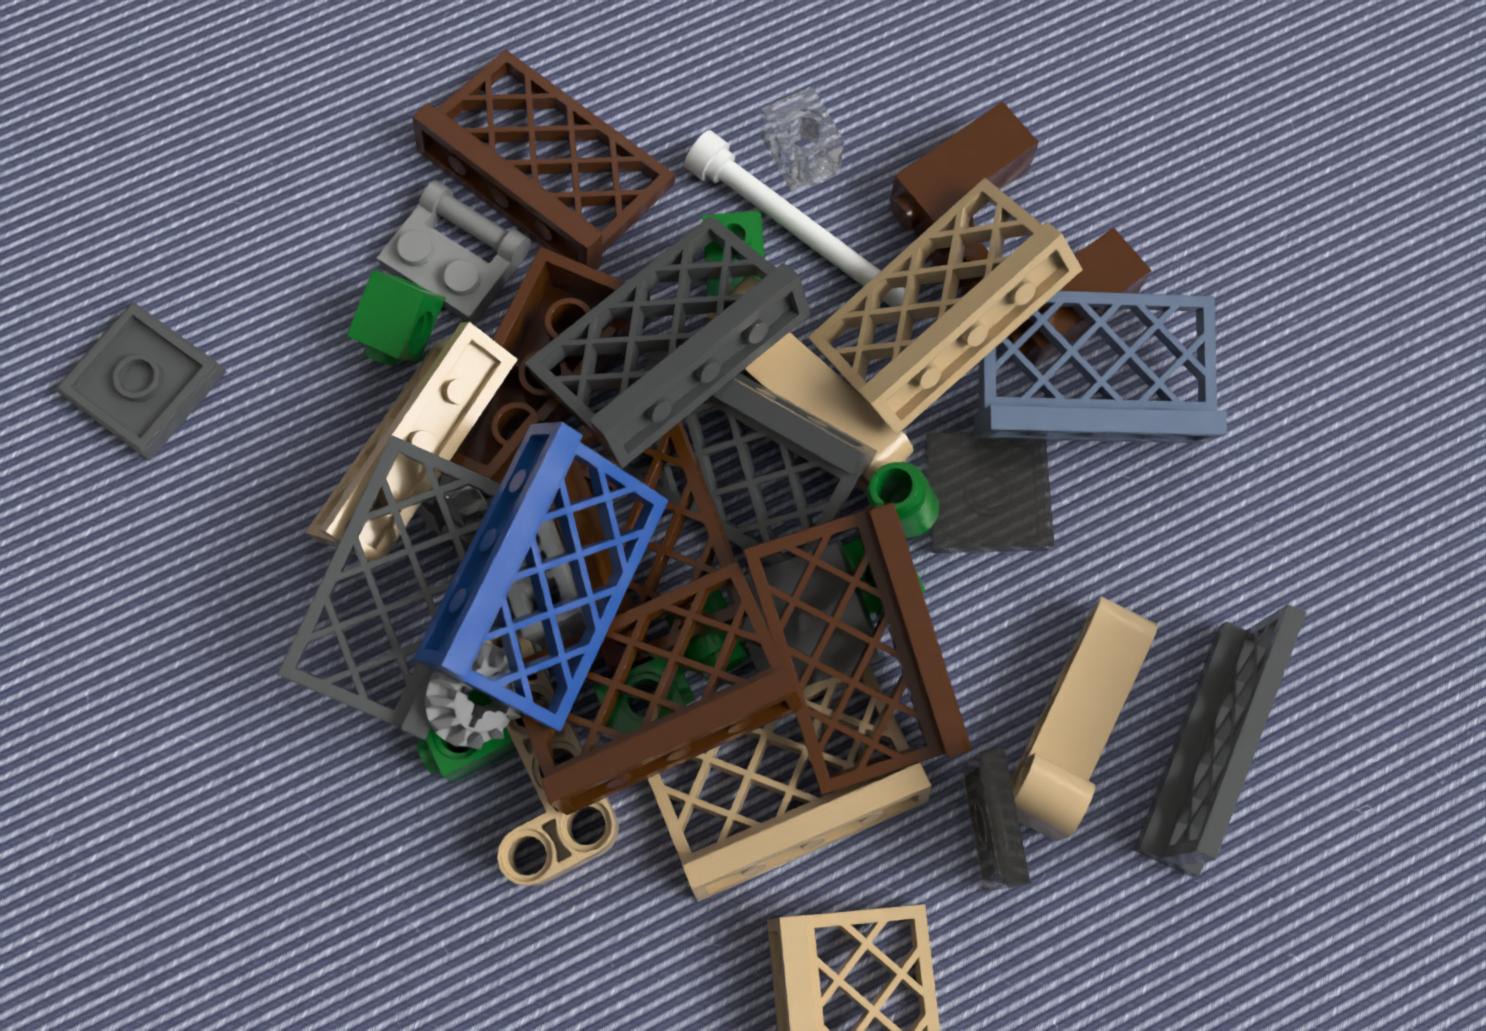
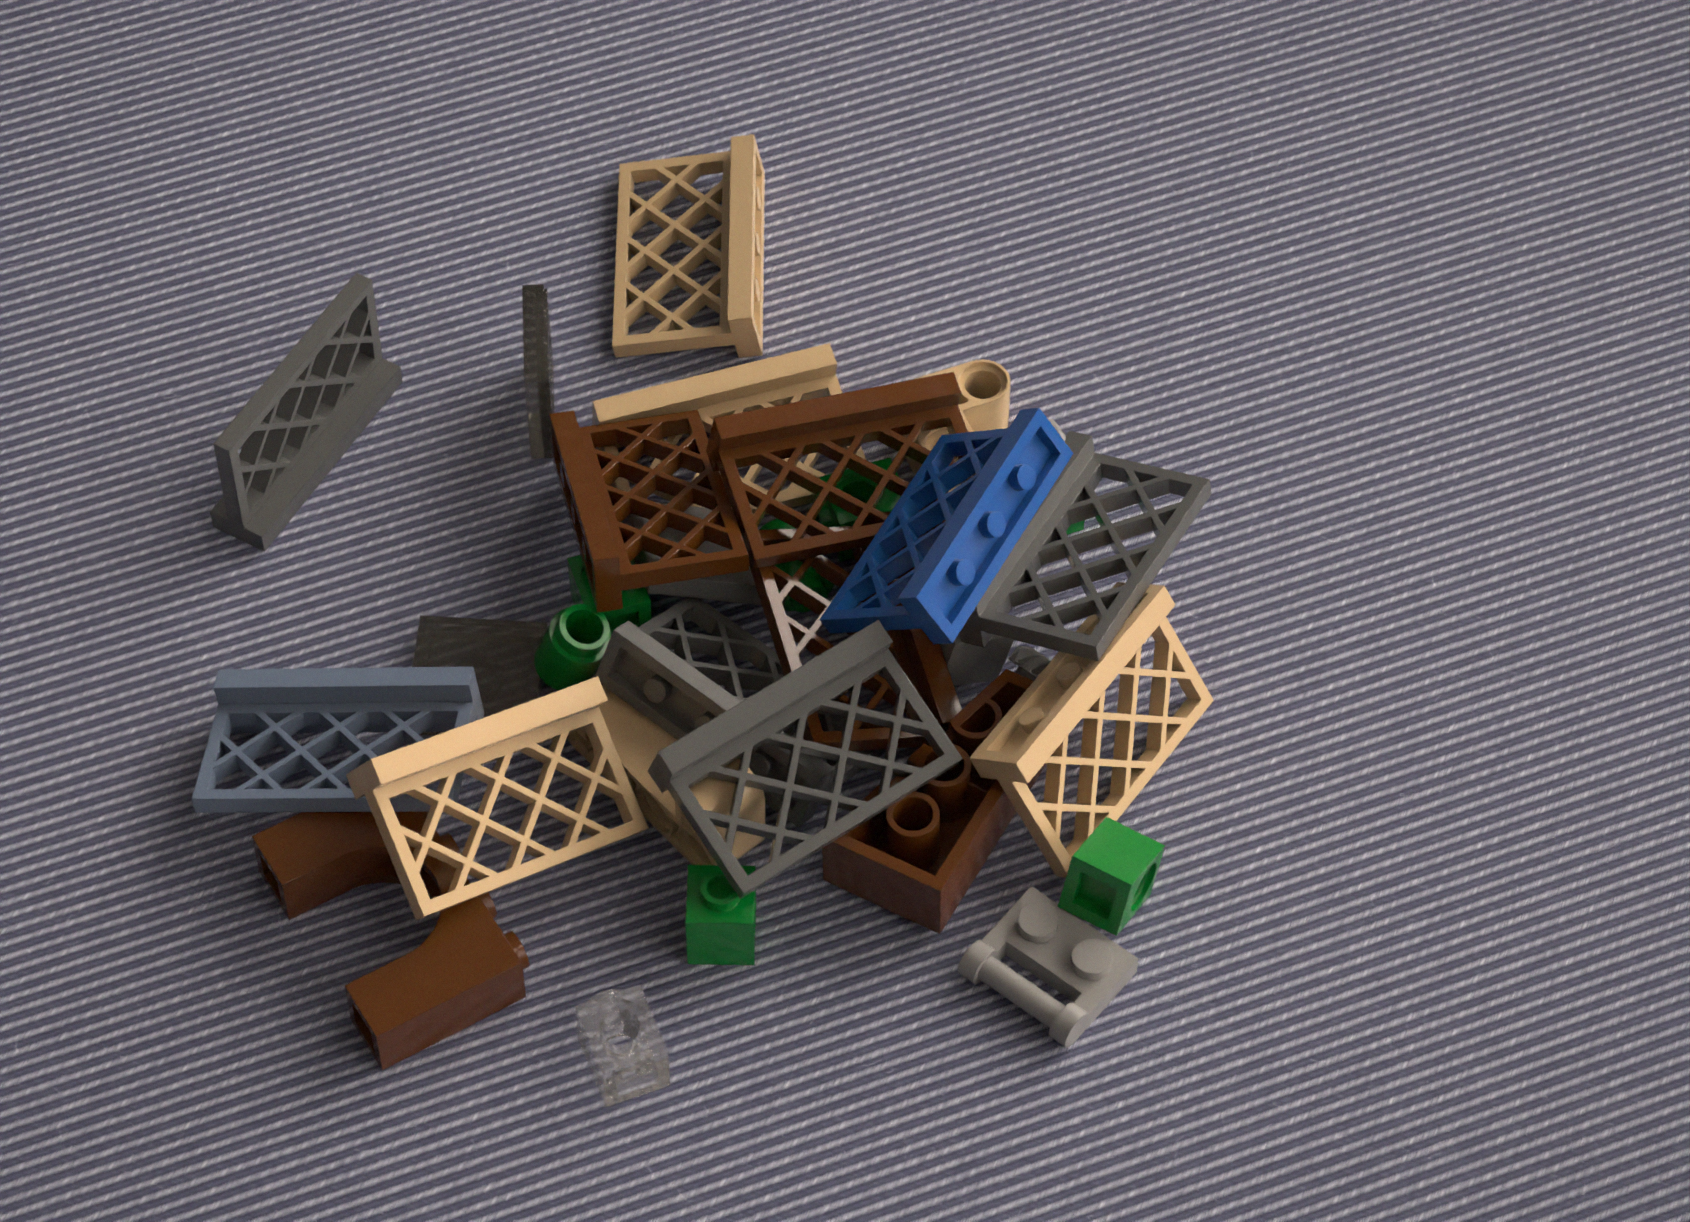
camera: 175 degrees left, 20 degrees down
(141, 380) = (1405, 863): dark grey tile -> none
(505, 182) = (987, 1027): reddish brown fence -> none
(712, 160) = (733, 1038): white piece -> none
(1059, 759) = (440, 456): tan beam -> none

